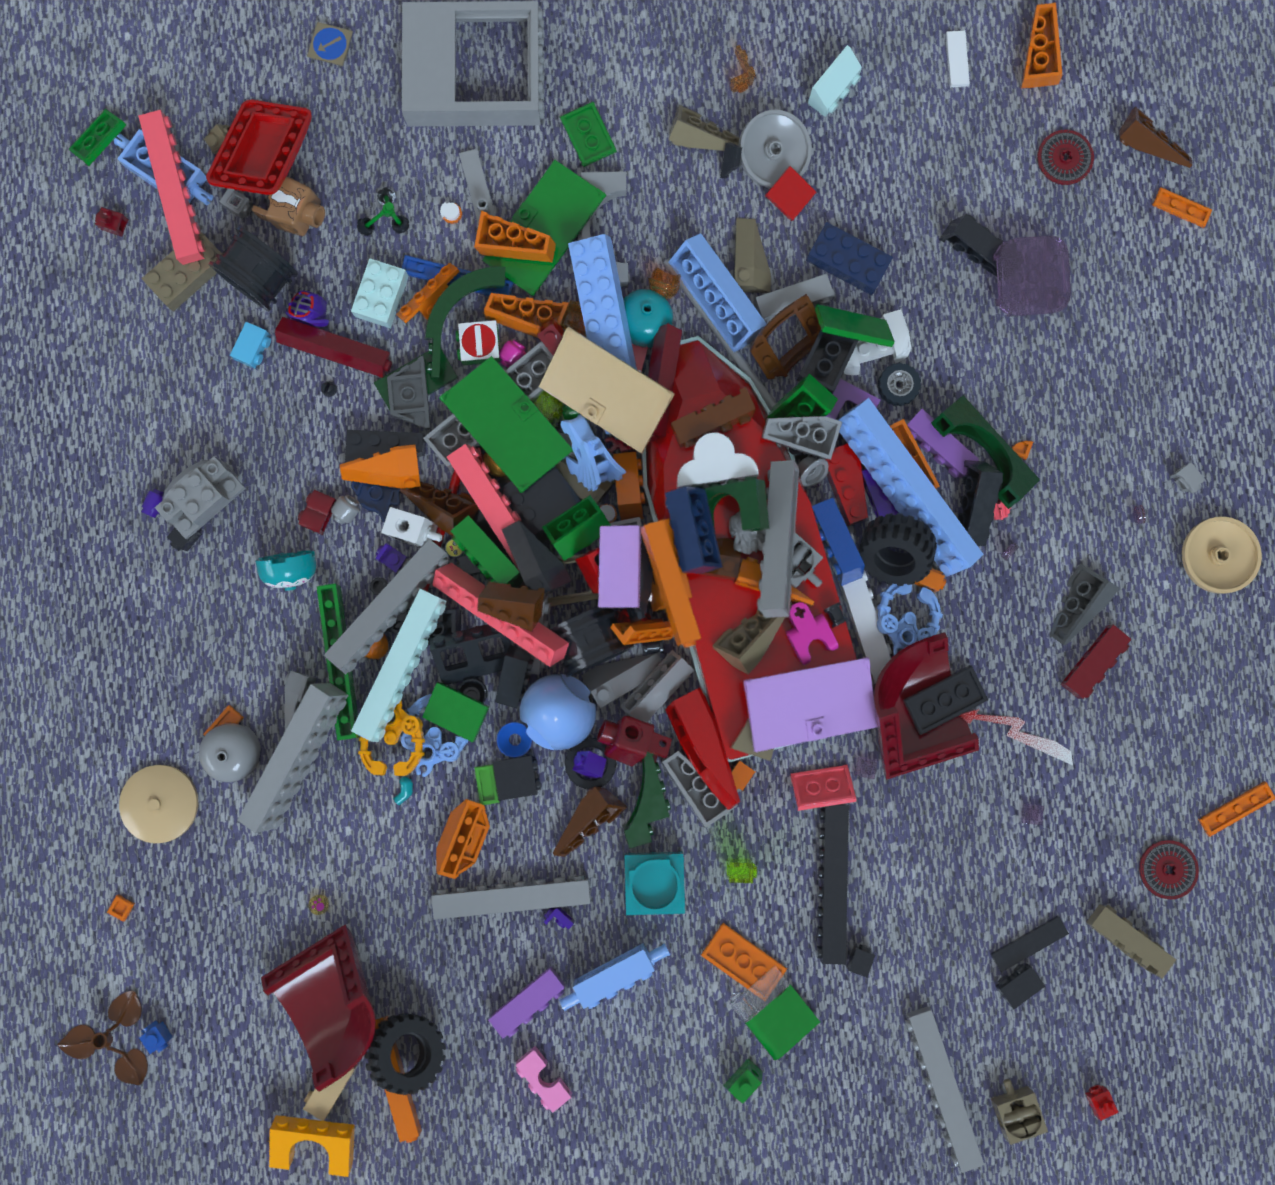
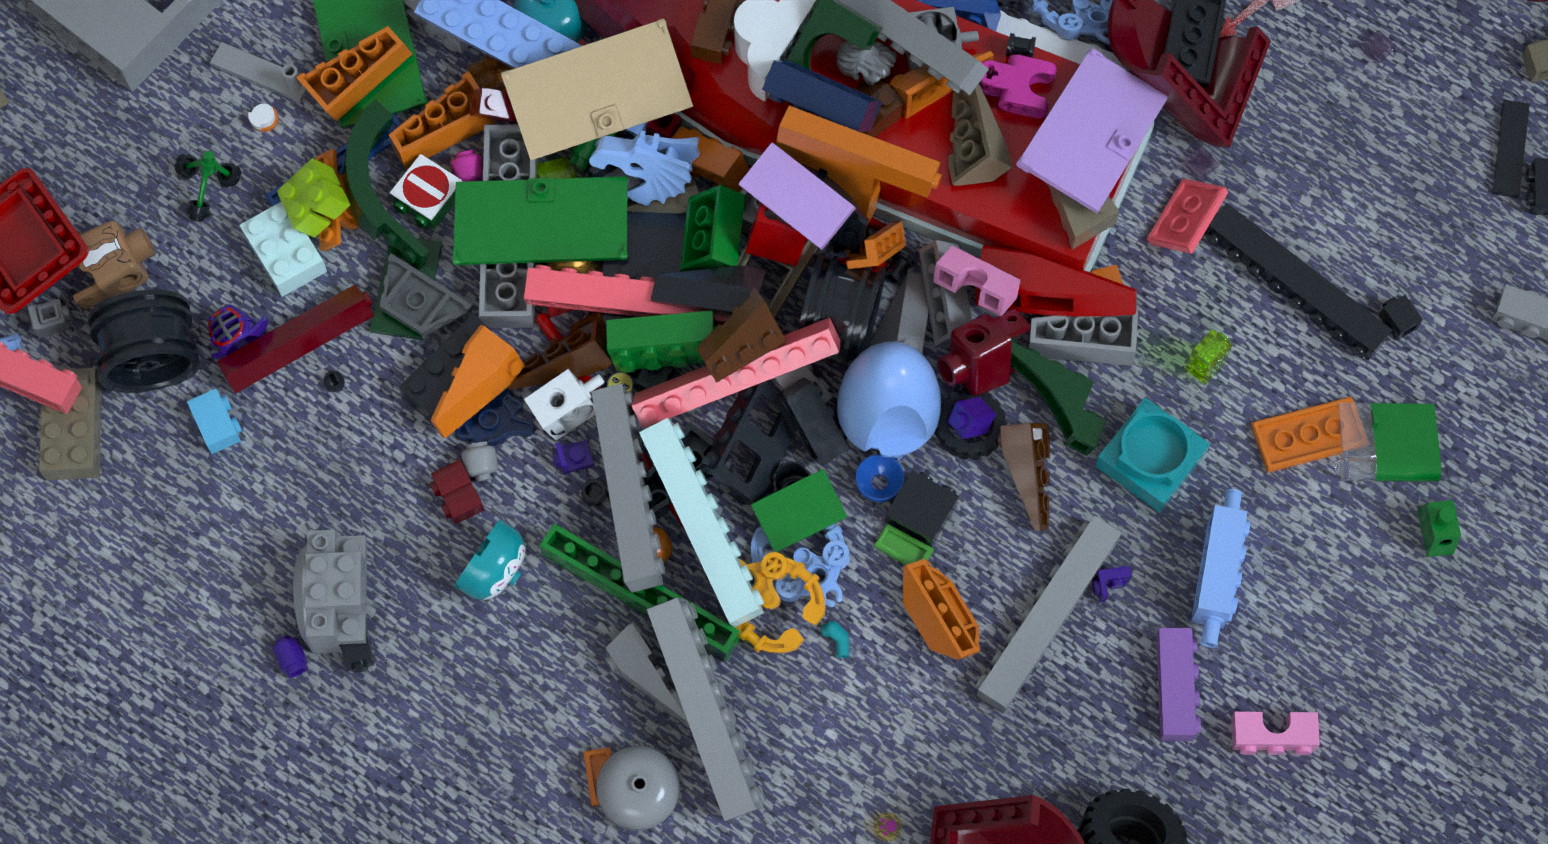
camera: 50 degrees left, 15 degrees down
(409, 286) = (312, 189): none -> lime piece
(671, 687) = (960, 268): none -> bright pink arch

